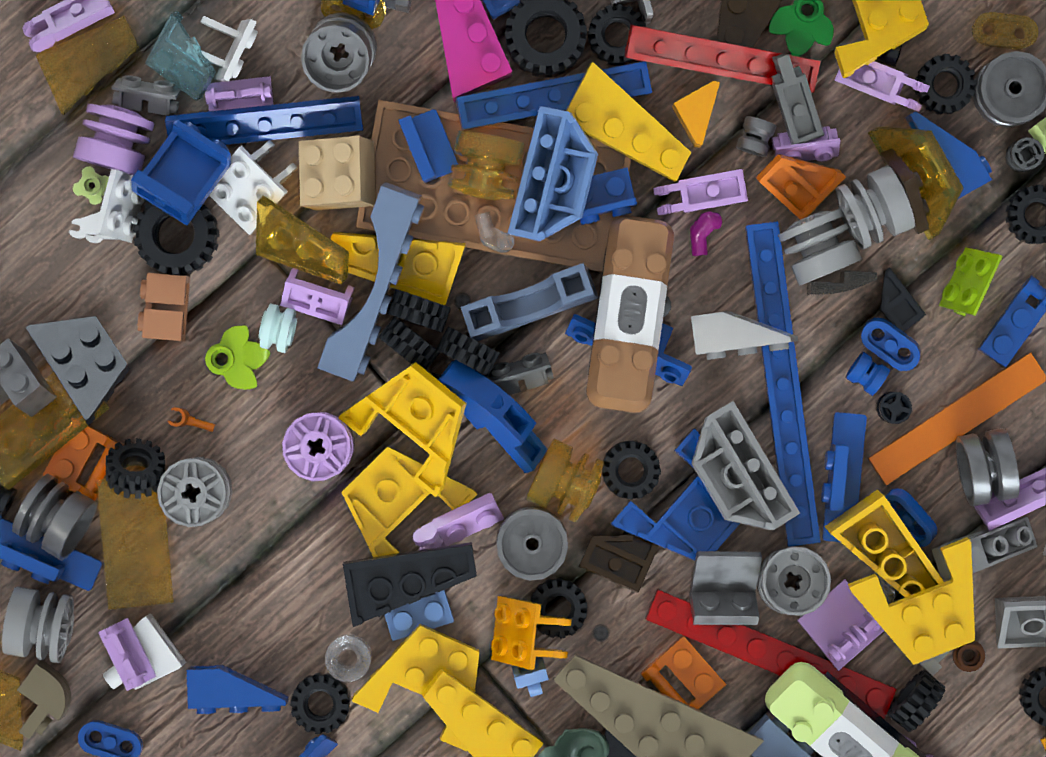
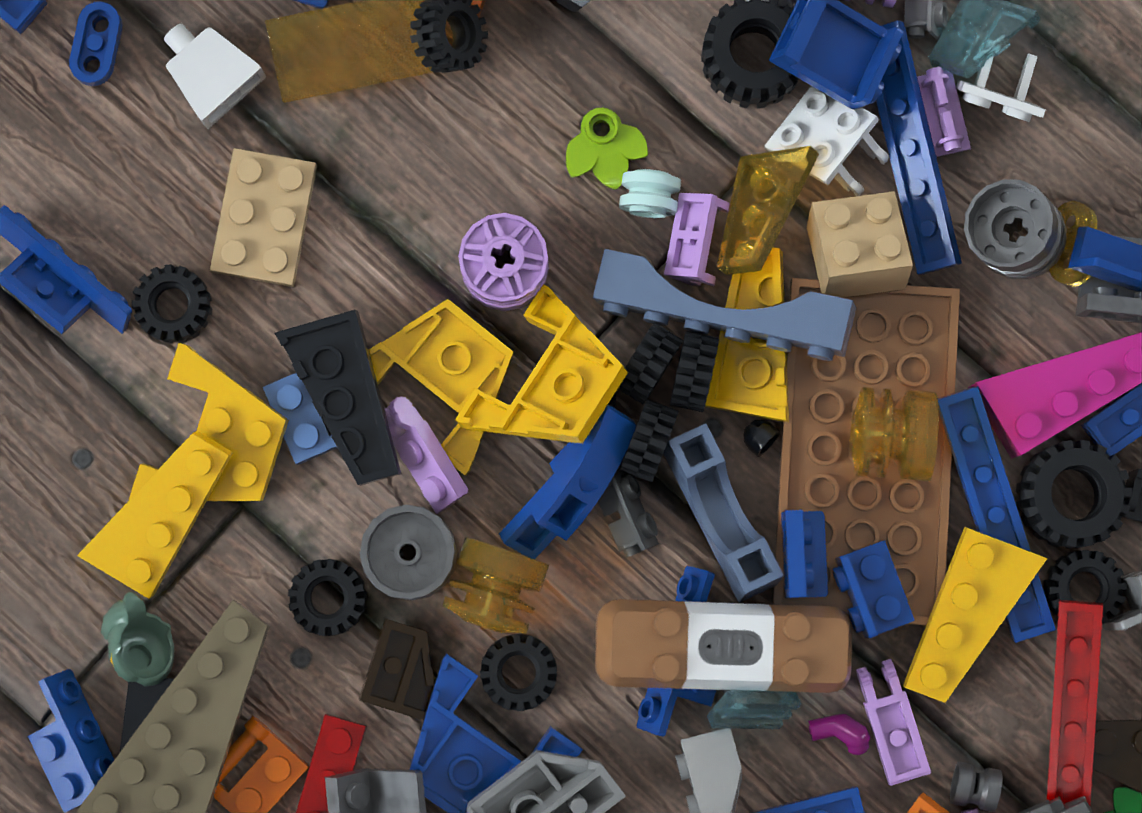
camera: 85 degrees right, 5 degrees down
(127, 654) = (209, 48): lavender hinge -> none
(165, 307) = (659, 49): nougat piece -> none
(191, 421) = (518, 95): orange hand -> none
(201, 473) = (431, 136): light grey wheel -> none
(222, 687) = (179, 178): blue slope -> none
(260, 626) = (263, 217): none -> tan plate
(344, 672) = (218, 322): clear wheel -> none
(428, 145) = (910, 358): blue panel -> none
(473, 266) = (760, 436): none -> black hinge
(491, 237) = (801, 453): clear arm -> none
(516, 633) = (289, 545): light orange plate -> none
(531, 678) = (237, 571): medium blue tile -> none
(553, 177) = (892, 524): medium blue wedge -> none
(571, 245) = (804, 554): none -> blue bracket
(680, 297) = (753, 709): none -> clear light blue tile
(695, 112) = (998, 702): light orange slope -> none

